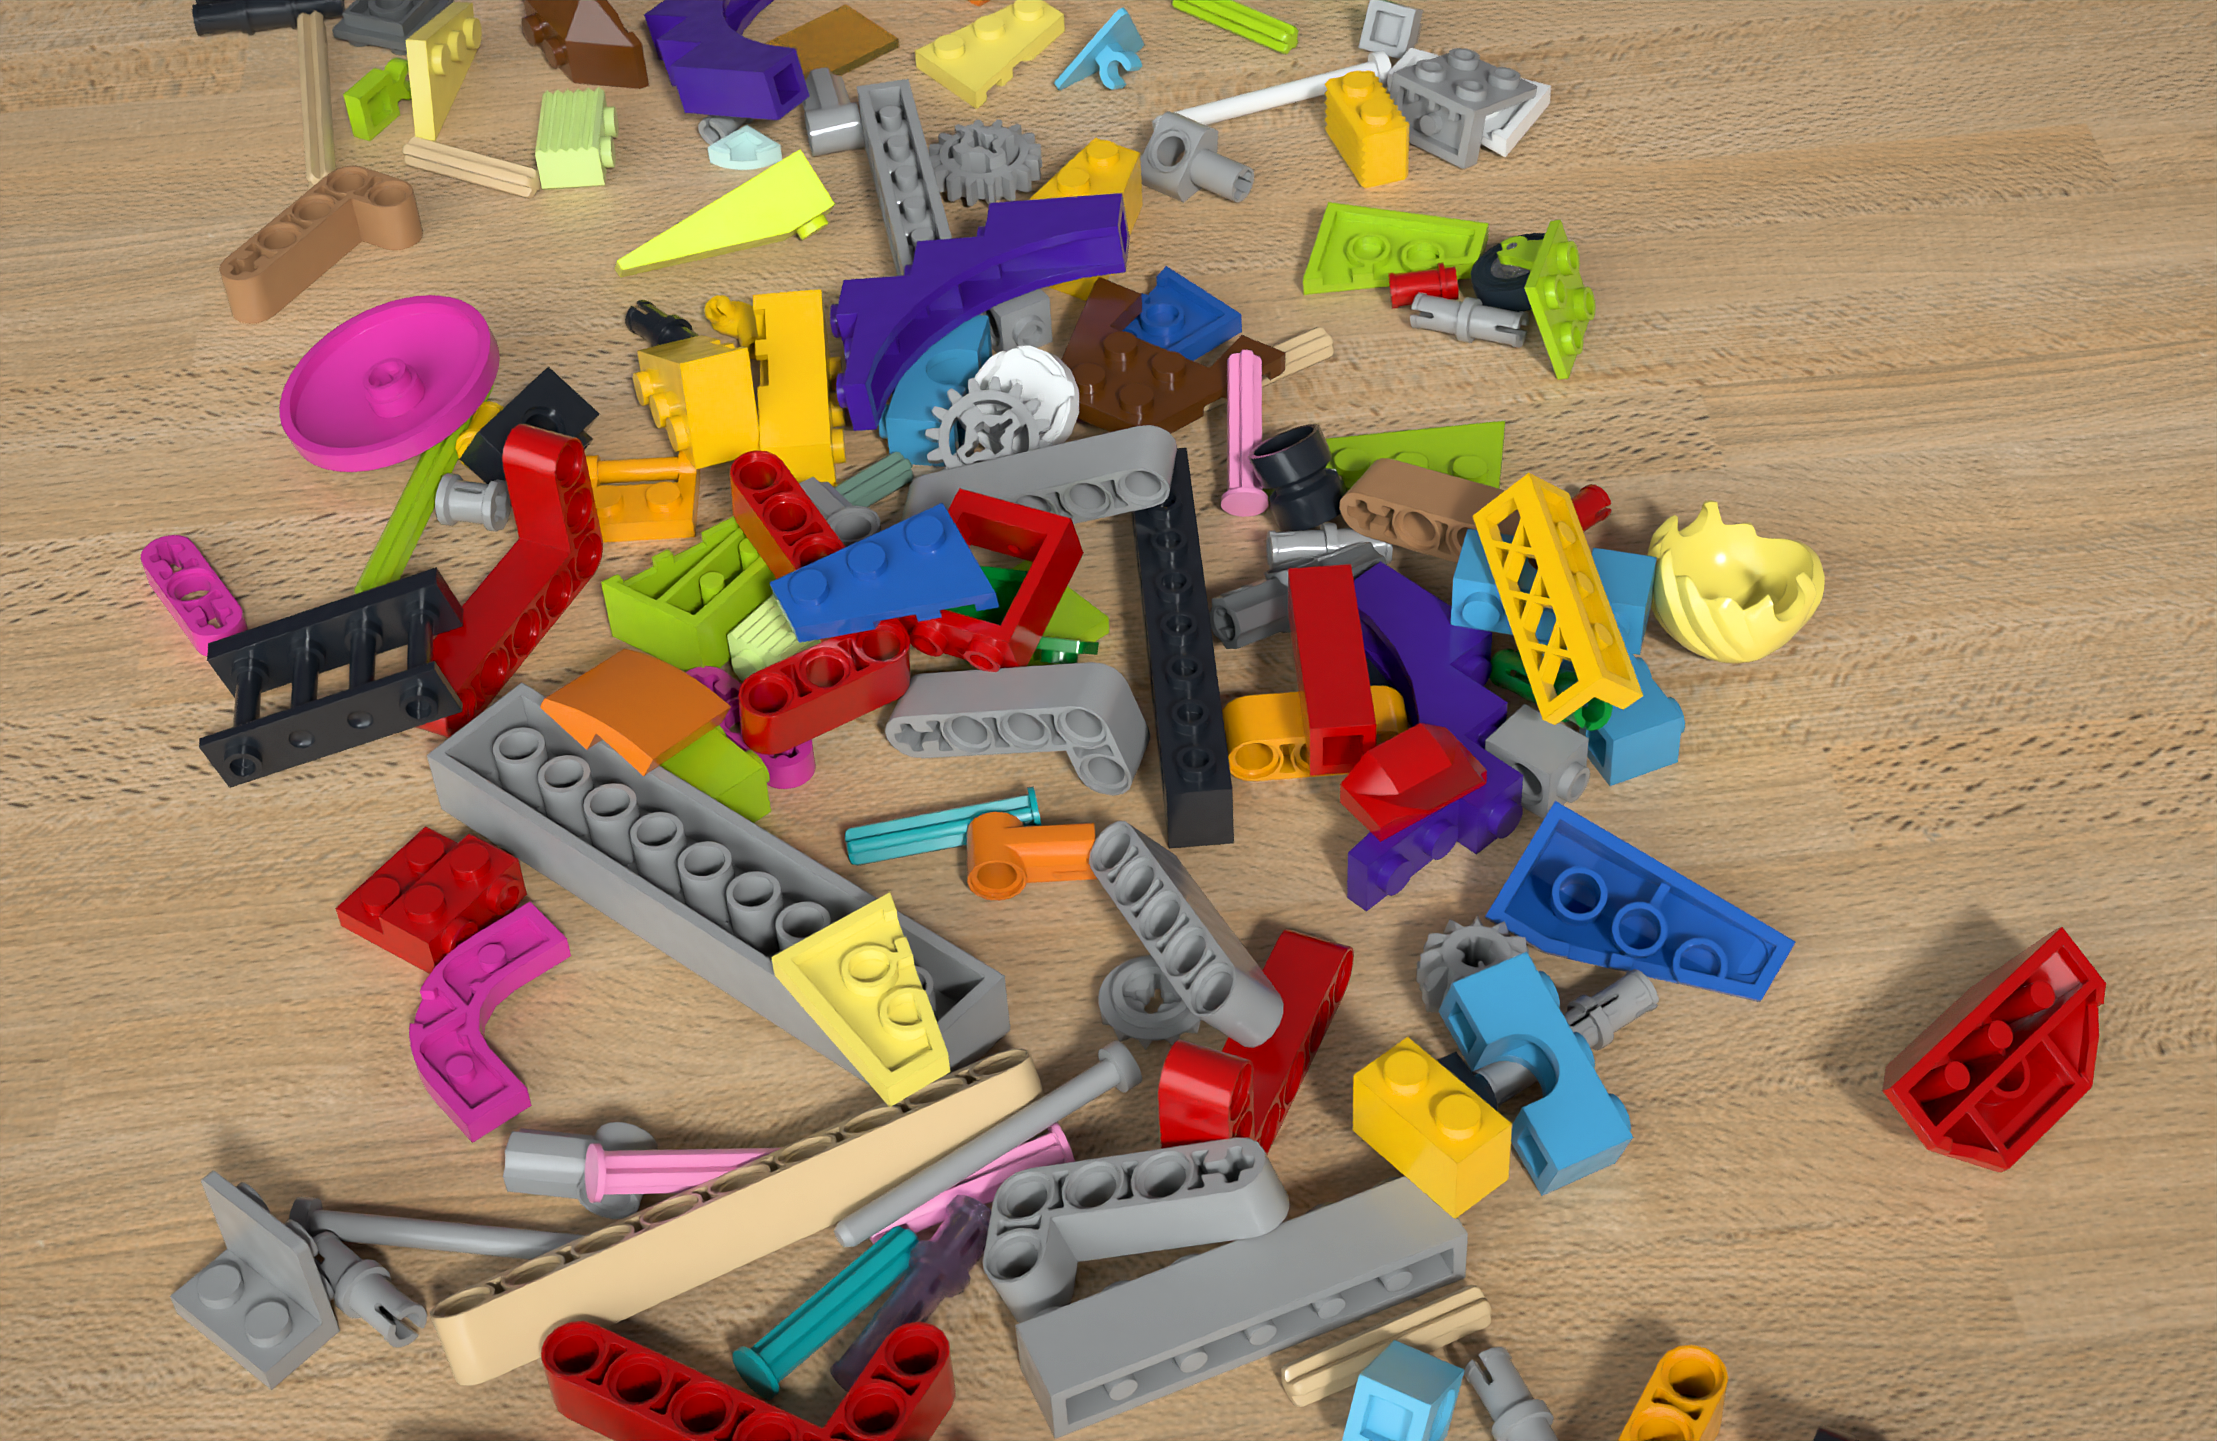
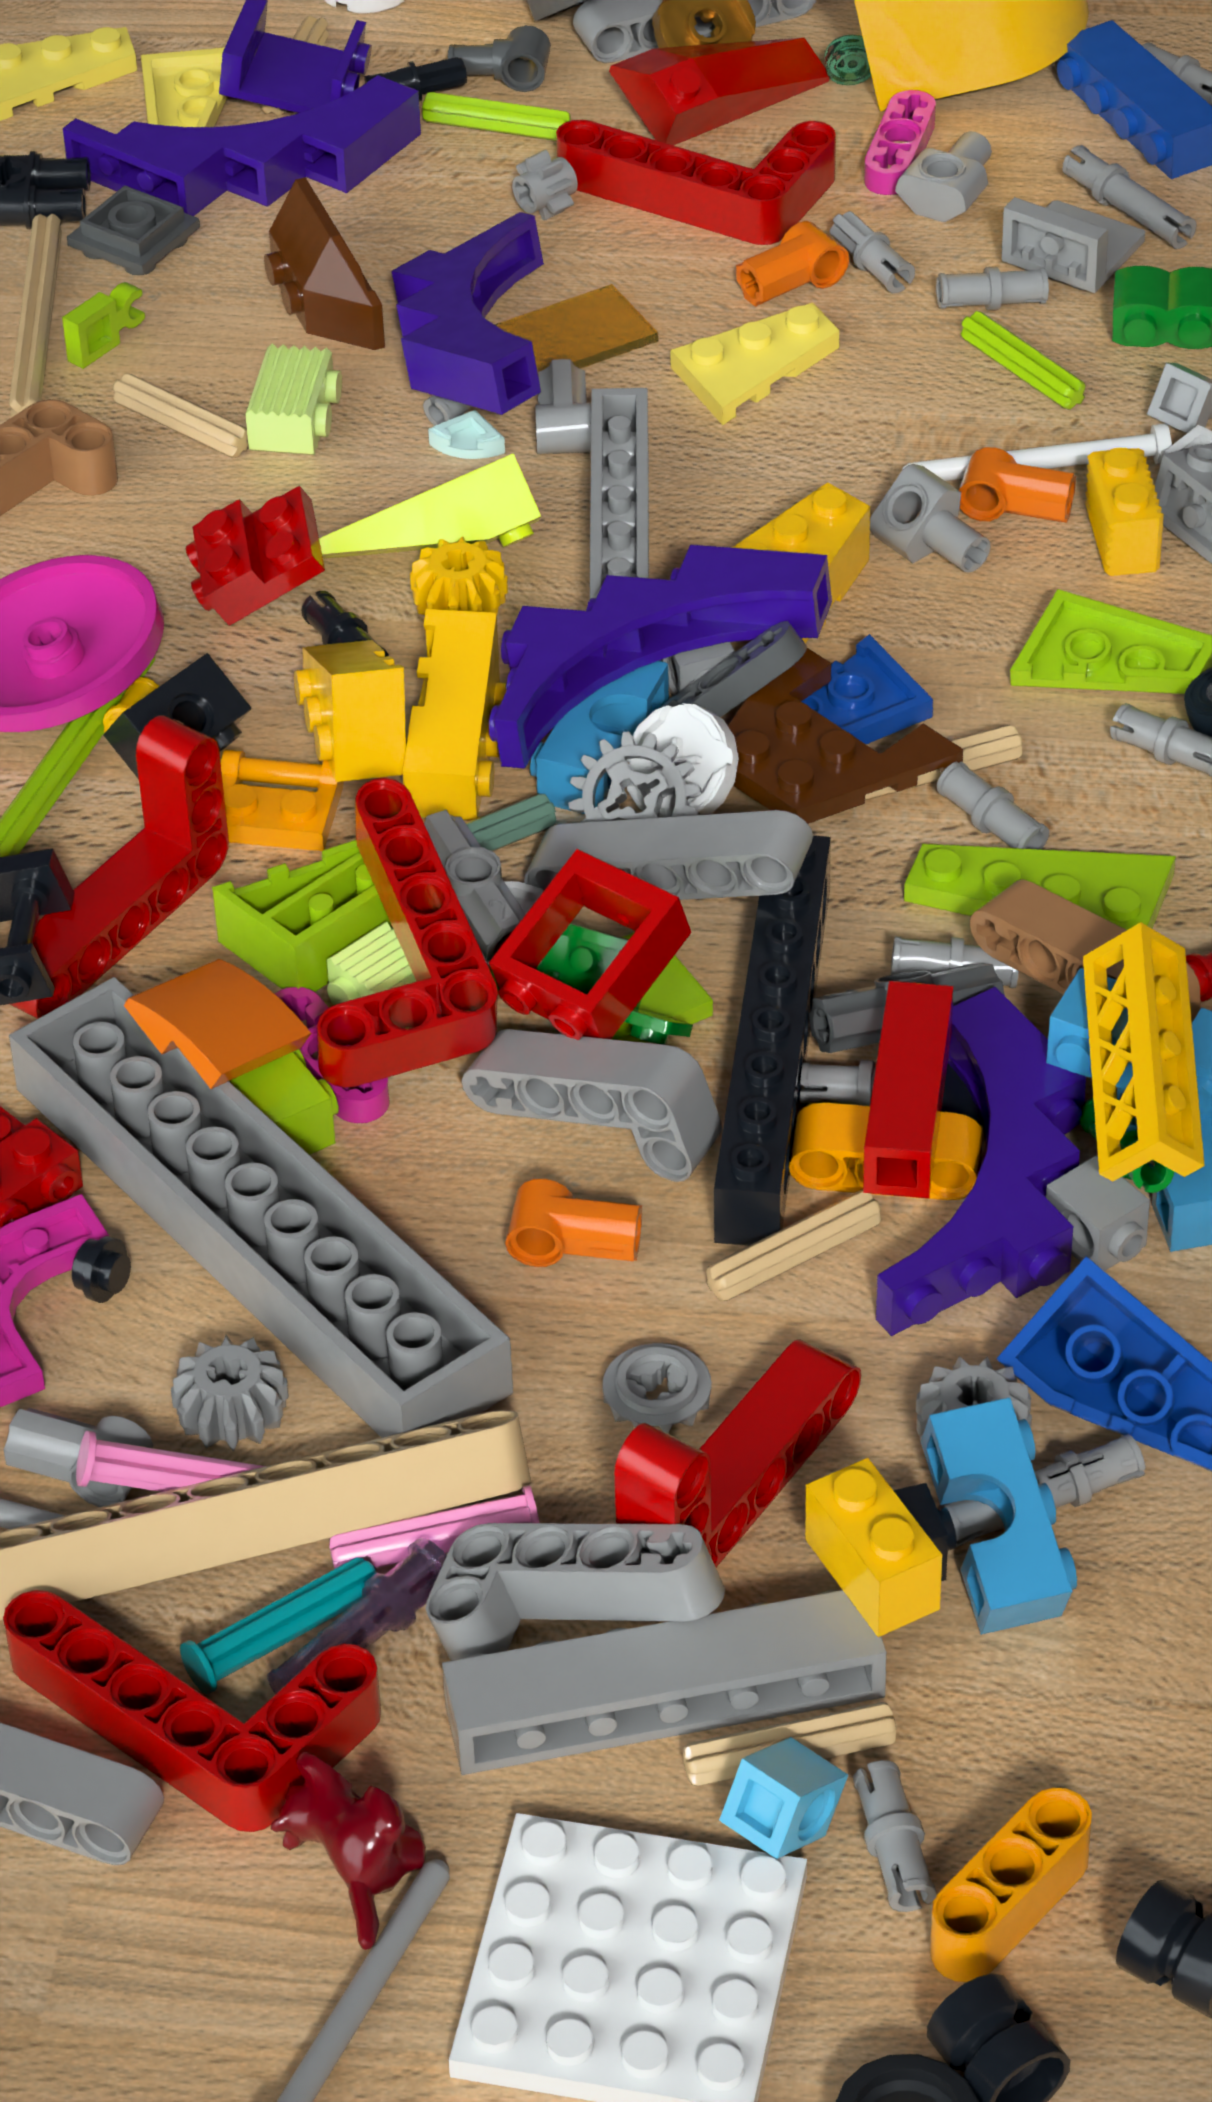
camera: 10 degrees right, 0 degrees up
(438, 64) = (168, 294): light yellow wing -> none
(472, 502) = (105, 782): light grey bush -> none
(565, 973) = (101, 1268): none -> black plate
(570, 278) = (255, 555): none -> red plate
(724, 1078) = (229, 1393): none -> light grey gear
(733, 320) = (407, 624): yellow arm -> none
(768, 267) = (459, 578): none -> yellow gear
(868, 999) = (372, 1338): light yellow wing -> none
(889, 575) = (491, 926): blue wing -> none
(930, 830) = (484, 1186): teal axle -> none
(985, 162) = (711, 489): light grey gear -> none
(1065, 310) = (744, 671): none -> dark grey beam
(1108, 48) = (869, 383): medium azure piece -> none
(1115, 1069) = (596, 1445): light grey bar -> none
(1186, 935) = (695, 1327): light grey beam -> none
(1244, 433) = (897, 832): bright pink axle -> none
(1256, 832) = (793, 1245): none -> tan axle
(1257, 676) = (838, 1083): none -> light grey pin
(1261, 123) = (1000, 485): none -> orange piece
(1296, 470) = (937, 879): black wheel -> none
(1322, 403) = (991, 808): none -> light grey pin
(1410, 779) = (956, 1211): red slope -> none
(1434, 282) = (1146, 695): red pin -> none

